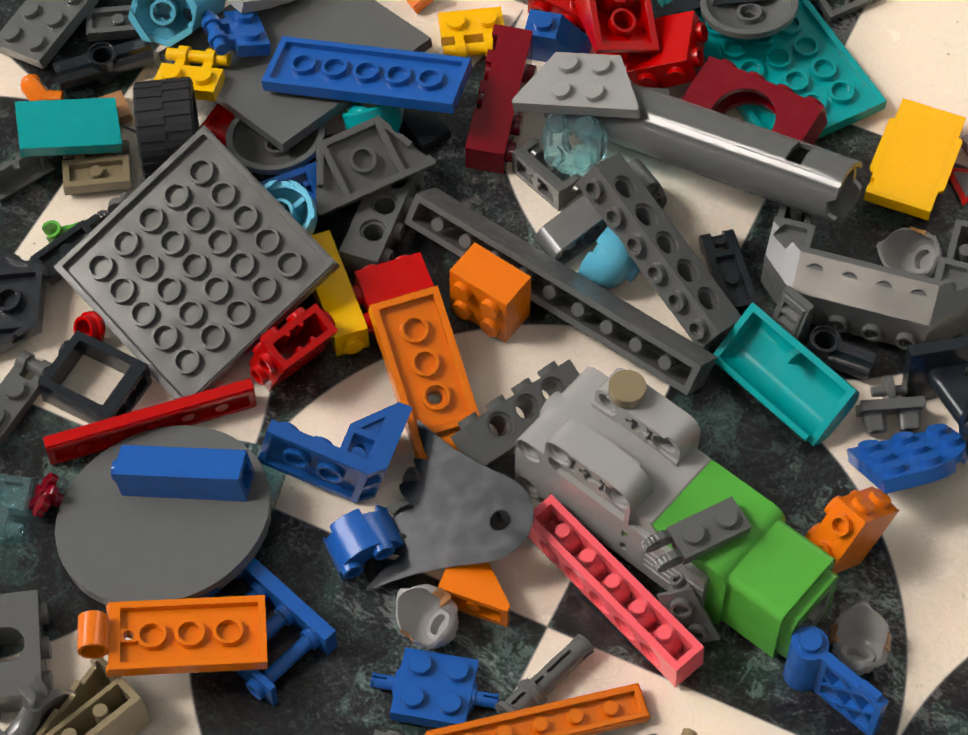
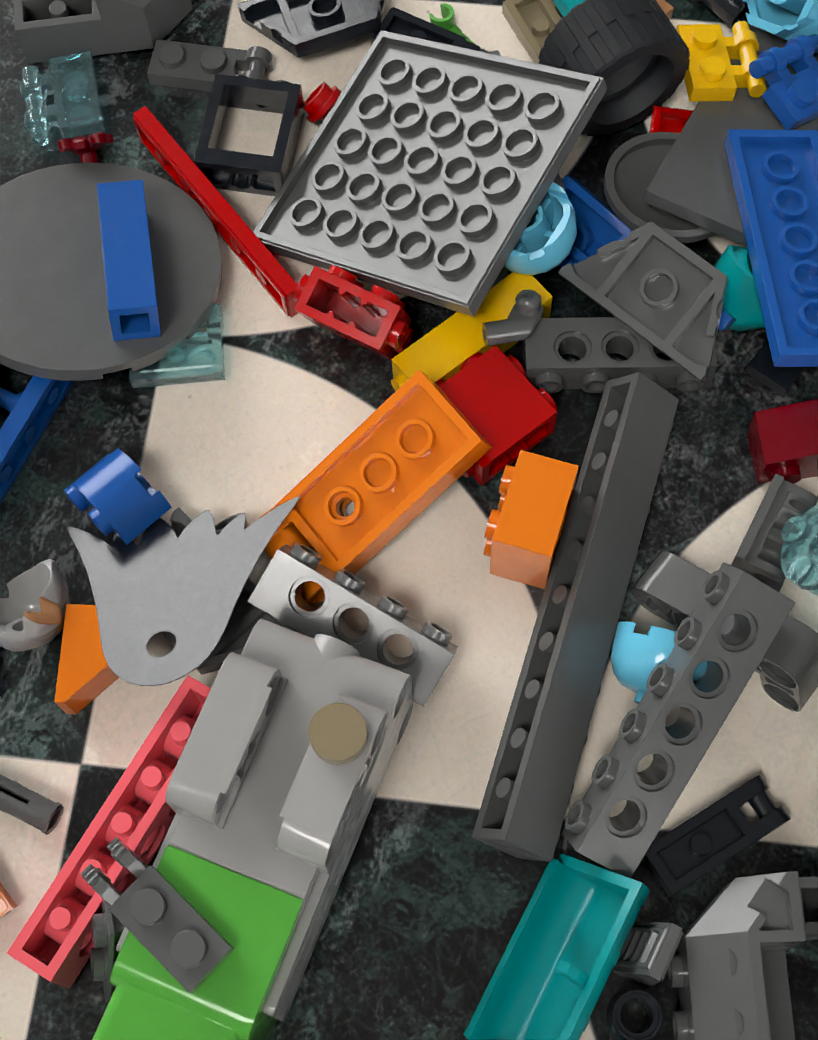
camera: 75 degrees right, 10 degrees up
(344, 251) = (519, 323): none -> dark grey arm
(346, 471) = (242, 457): blue bracket -> none

